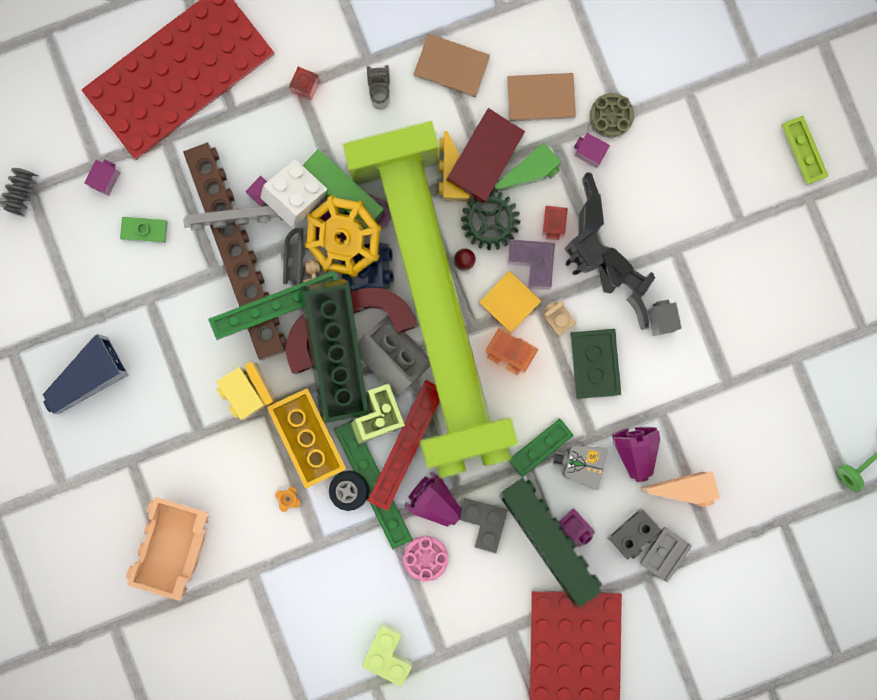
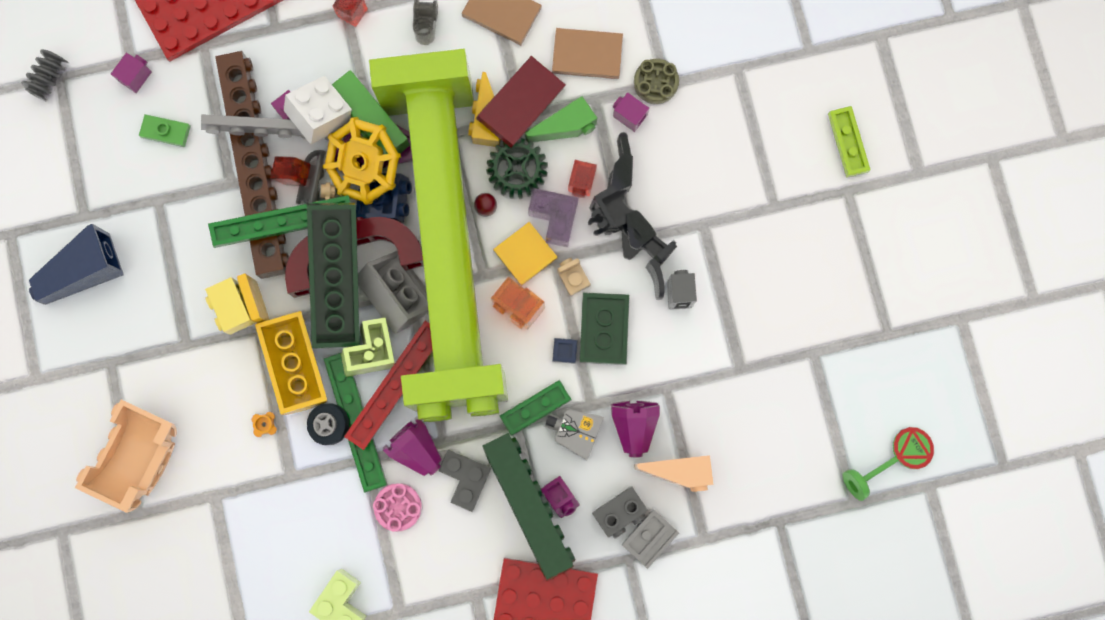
camera: 10 degrees right, 5 degrees down
(274, 254) = (290, 171): none -> clear red brick
(560, 389) = (564, 350): none -> dark blue tile

